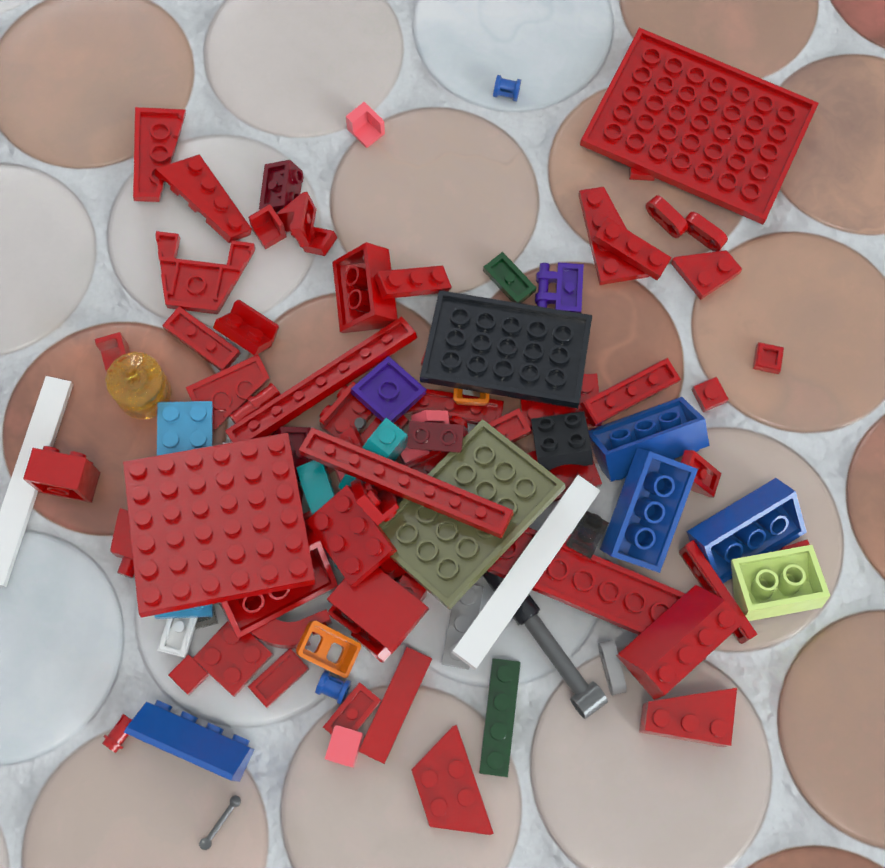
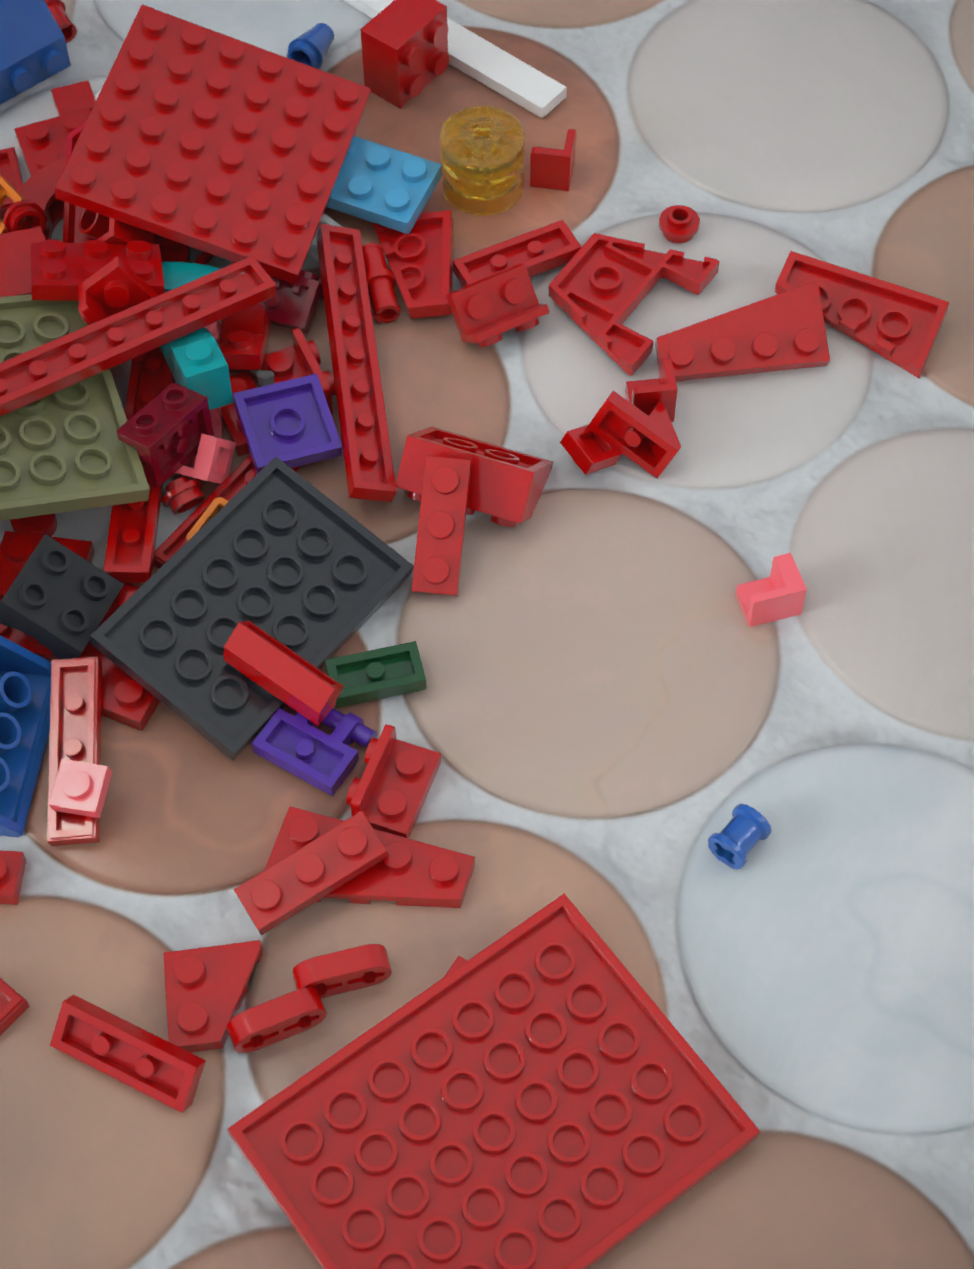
camera: 120 degrees right, 15 degrees down
(76, 546) = (311, 46): none -> blue cone
(133, 274) = (679, 223): none -> red plate
(280, 184) = (715, 439): dark red bracket -> none
(325, 613) = (21, 209): none -> red plate
(542, 307) = (281, 672): none -> red piece
(562, 243) = (393, 783): none -> red bracket
(652, 371) = (80, 788): none -> plate
(756, 283) = (127, 1053): none -> red plate

